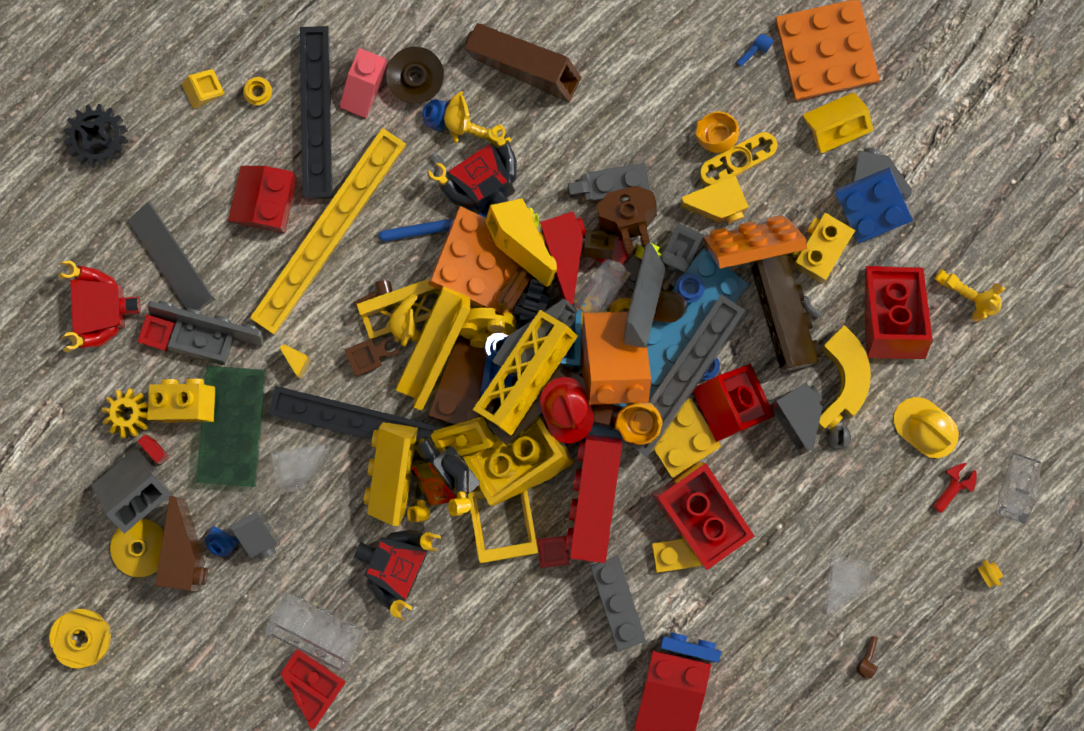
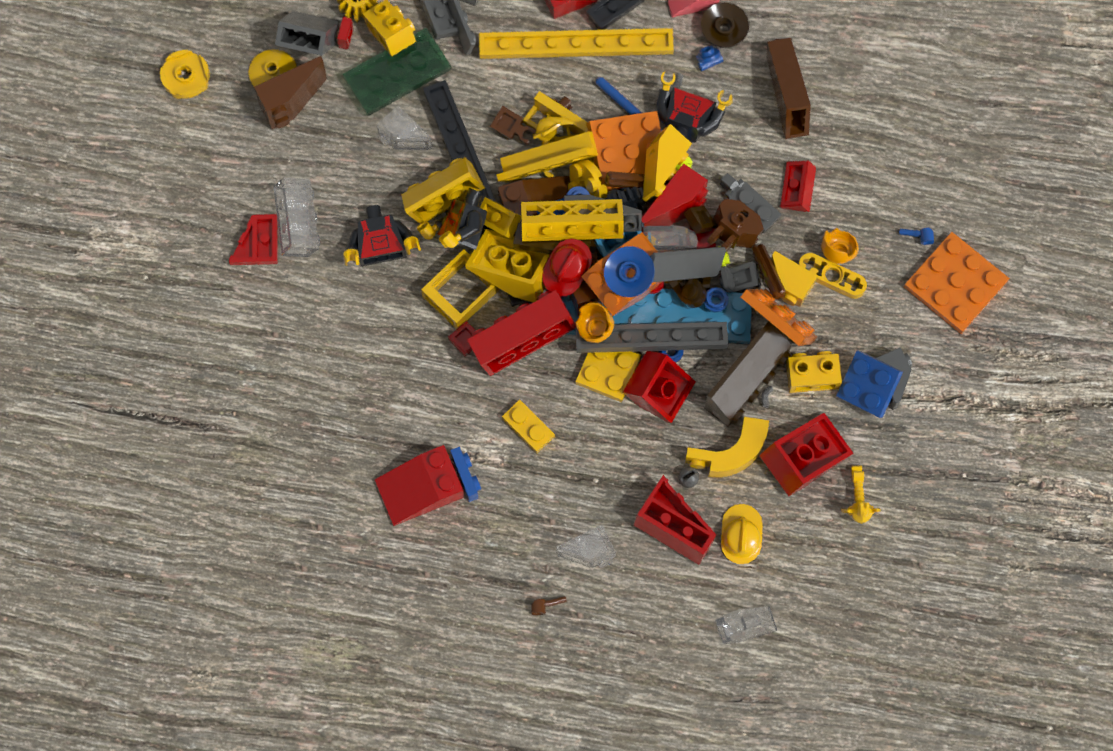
camera: 55 degrees right, 10 degrees down
(220, 542) = (314, 119): blue plate -> none
(256, 535) = (335, 133): dark grey slope -> none
(296, 359) = (472, 82): yellow slope -> none
(458, 121) = (714, 72): yellow piece -> none
(617, 603) = (460, 402): dark grey brick -> none
(625, 125) = (798, 186): none -> red slope
(629, 373) = (620, 263): none -> blue dish
(697, 217) = (768, 271): none -> reddish brown axle
(703, 515) = (564, 416): red slope -> none
(800, 416) = (685, 430): dark grey slope -> none
(839, 122) = (910, 324): yellow panel -> none
(877, 485) = (675, 523): none -> red wedge
(955, 486) = (714, 581): red bar -> none
(990, 573) = (669, 647): yellow plate -> none

